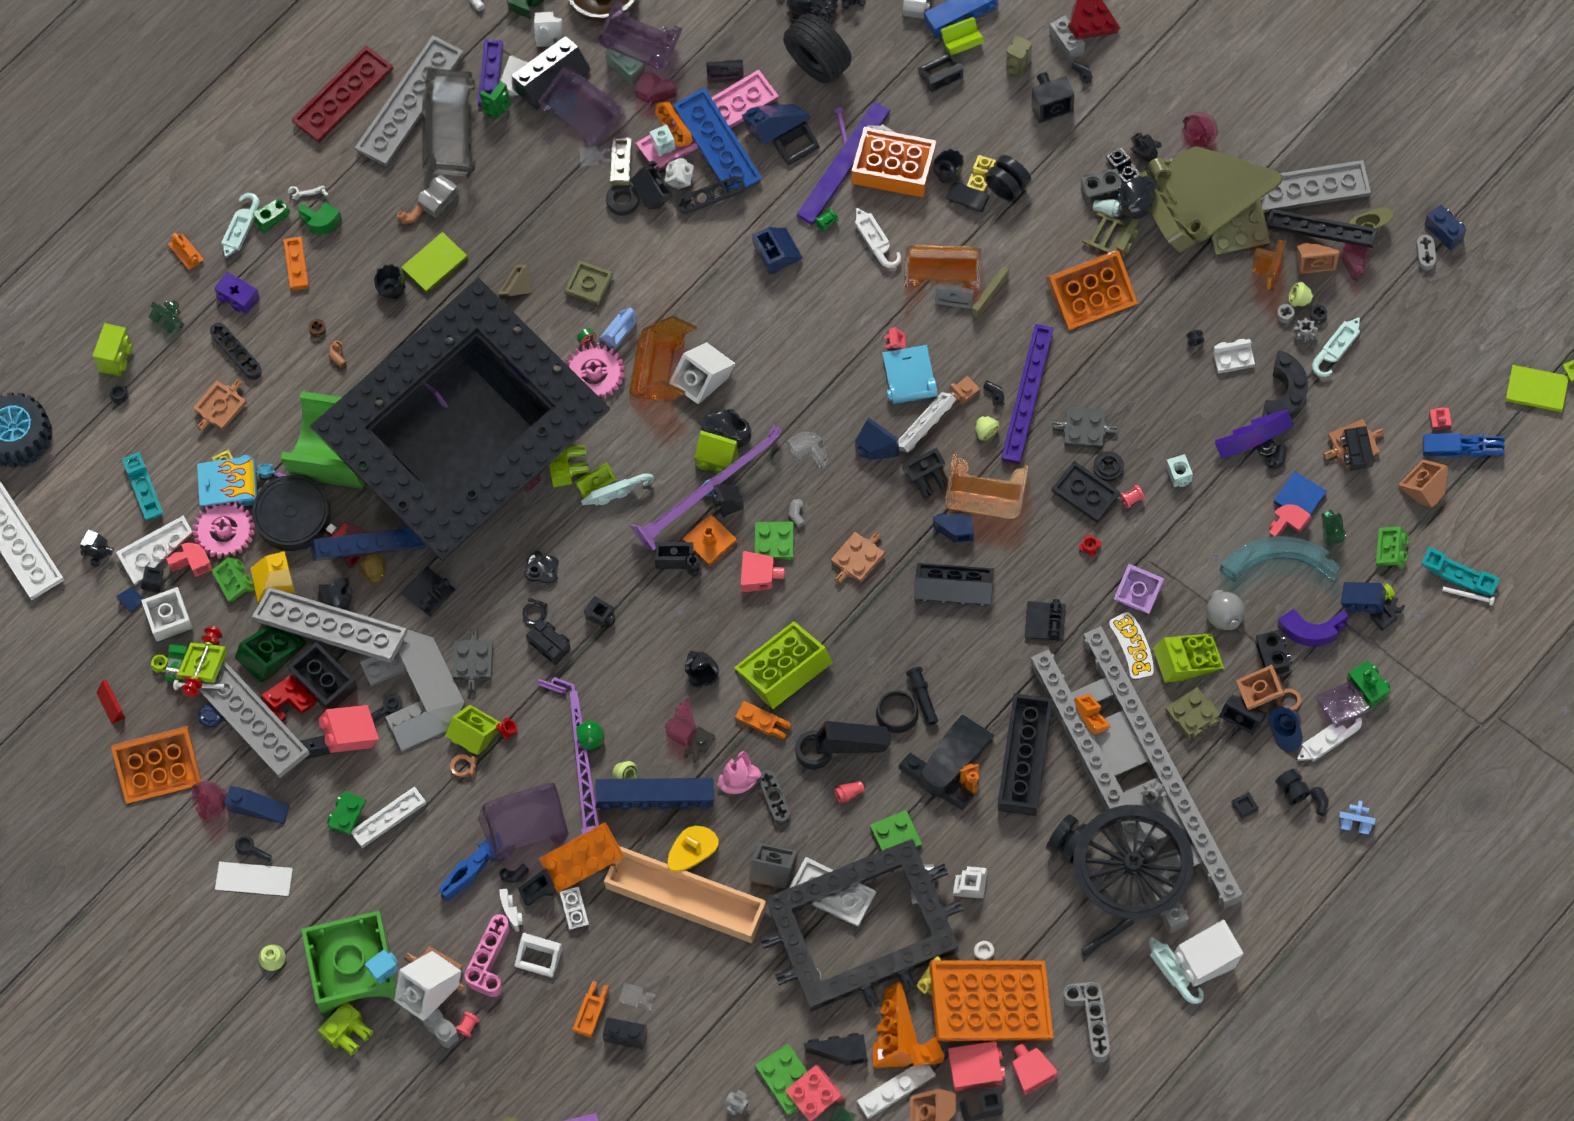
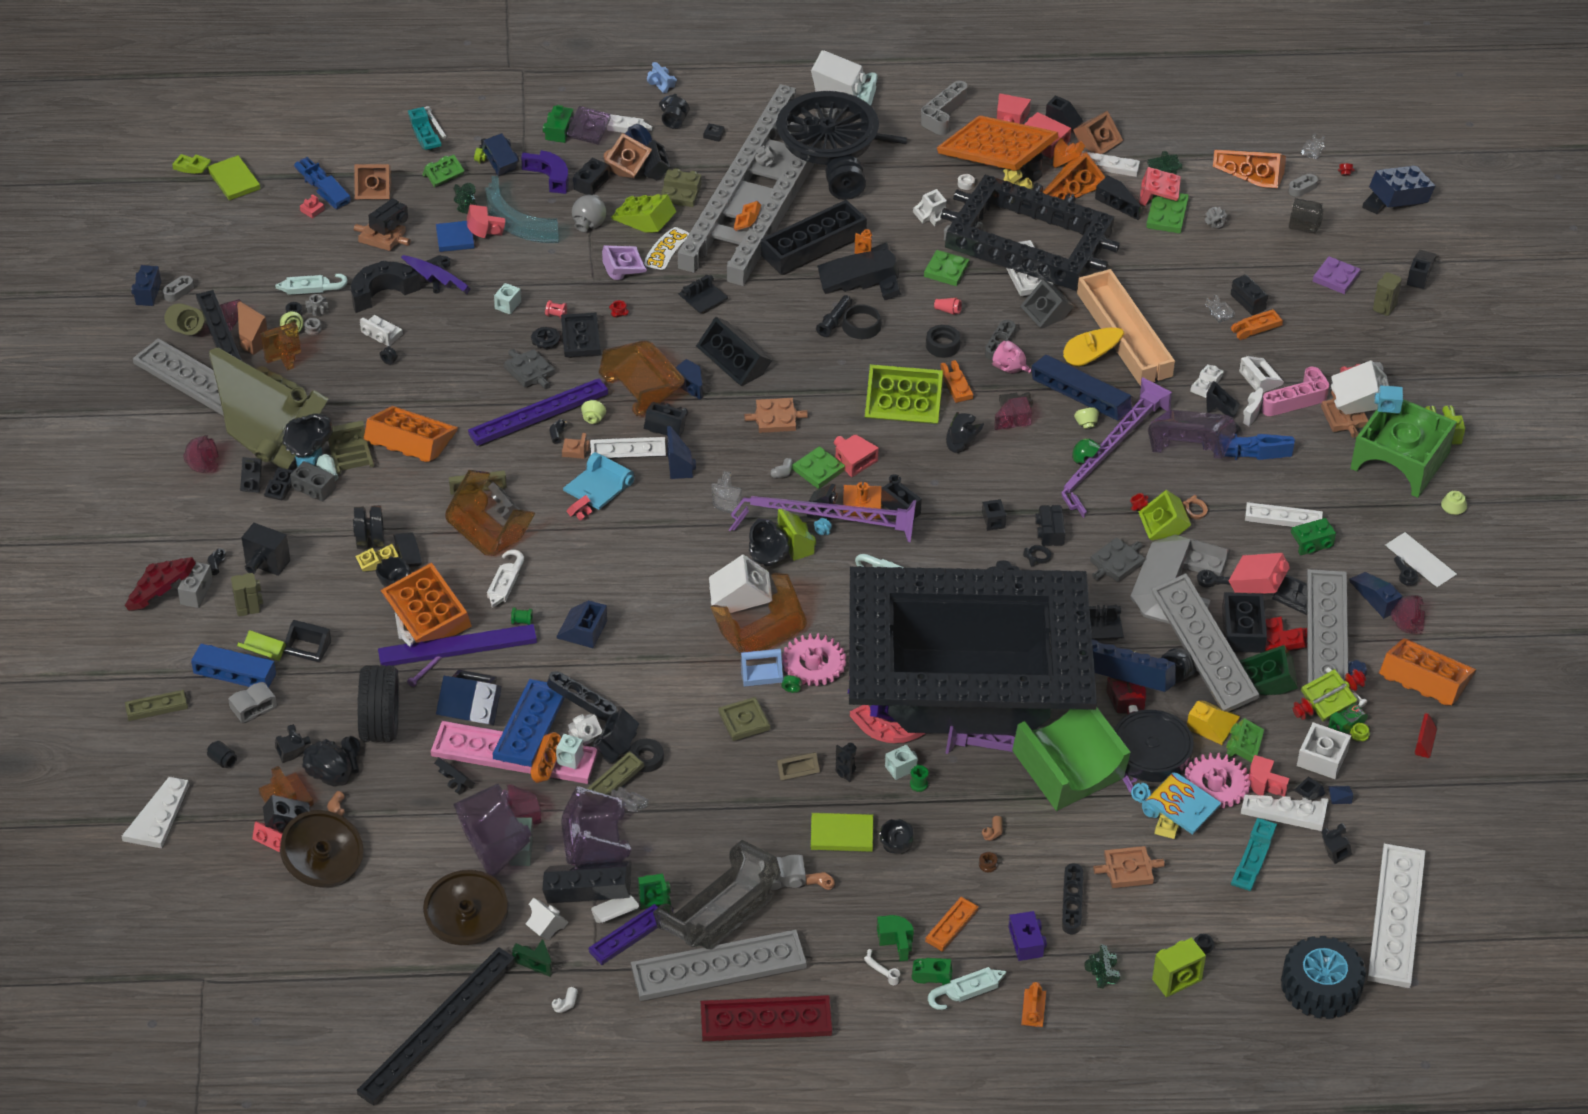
camera: 140 degrees left, 20 degrees down
(582, 857) = (1174, 382): orange plate -> none
(851, 738) = (917, 314): black slope -> none

